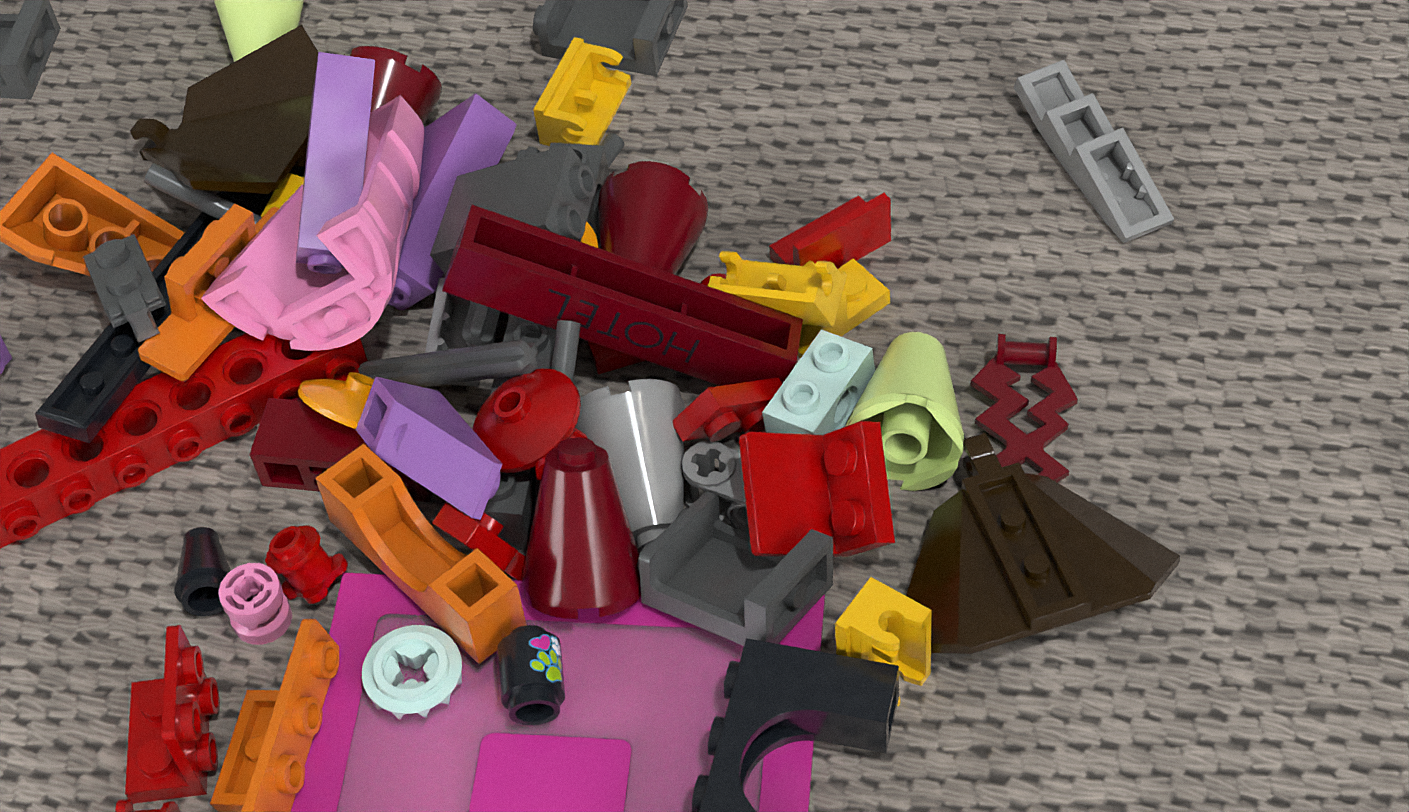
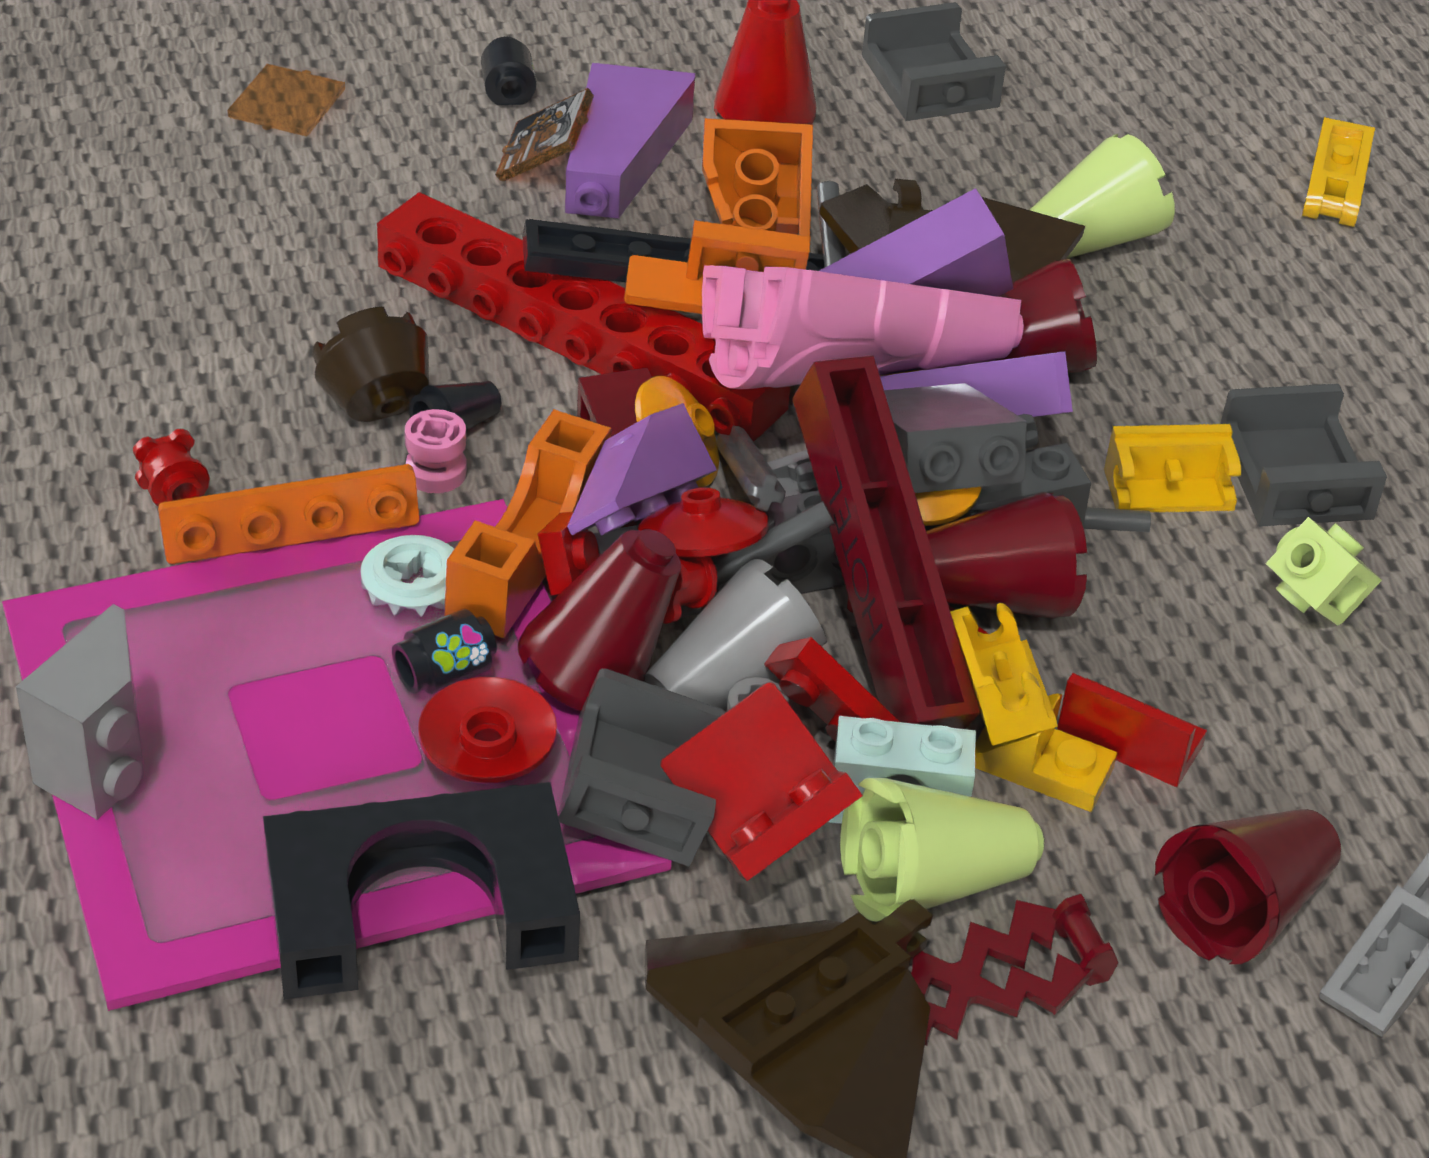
camera: 55 degrees right, 10 degrees down
(126, 285) = (672, 230): dark grey hinge -> none
(128, 611) = (373, 364): none -> dark brown cone
(170, 727) = (287, 433): red bracket -> none
(303, 563) = (492, 462): red brick -> none
(635, 649) = (487, 729): none -> red dish
(766, 49) = (1322, 570): none -> yellowish green brick
(887, 629) = (614, 900): yellow hinge -> none
(1028, 232) = (1243, 879): none -> dark red cone

